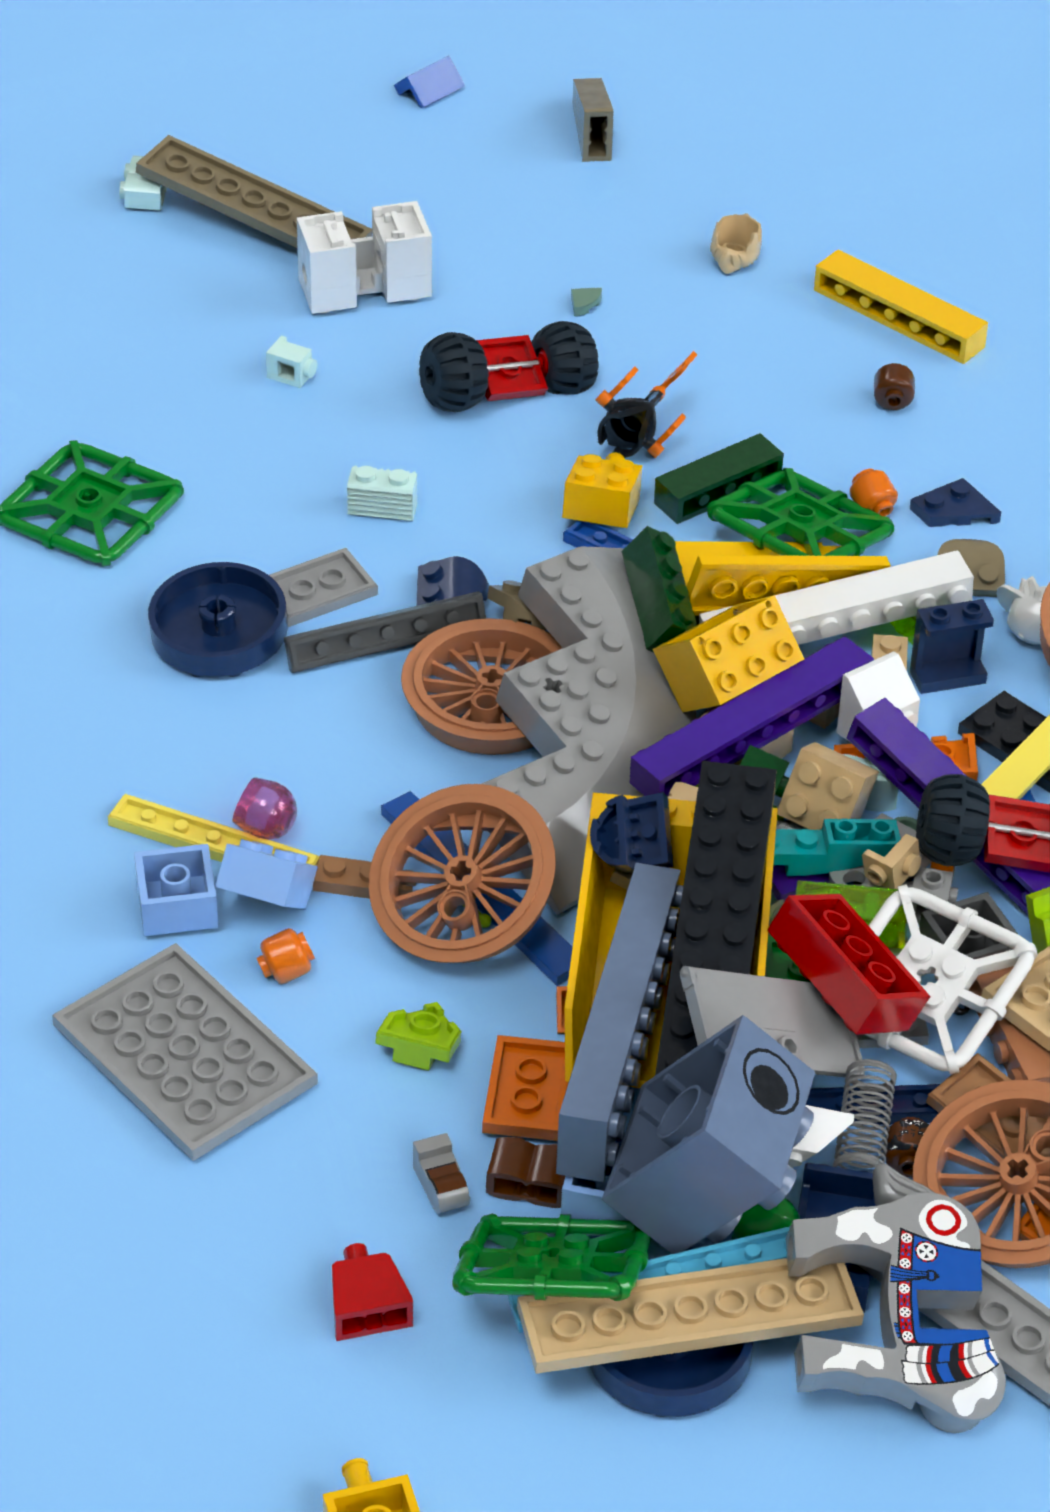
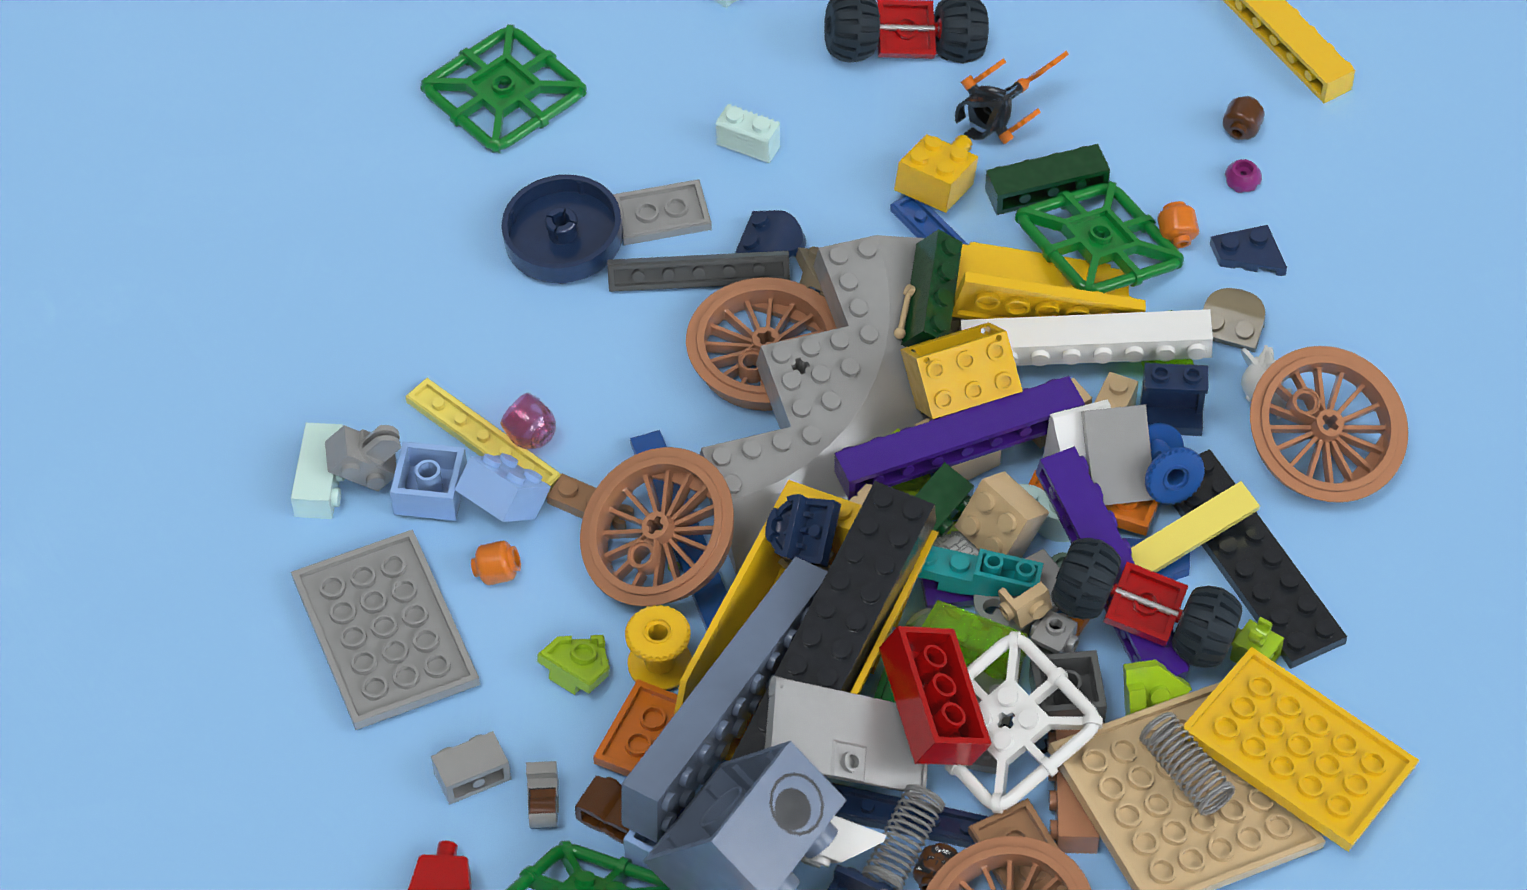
camera: 20 degrees right, 10 degrees up
(42, 908) = (314, 488): none -> light aqua brick
(95, 877) = (364, 455): none -> light grey brick
(346, 1166) = (470, 767): none -> light grey brick
(512, 988) = (658, 646): none -> yellow hose
(635, 595) = (899, 332): none -> tan hinge
(915, 439) = (1243, 176): none -> magenta plate
(927, 697) = (1118, 452): none -> light grey tile
(984, 708) = (1174, 468): none -> blue hose

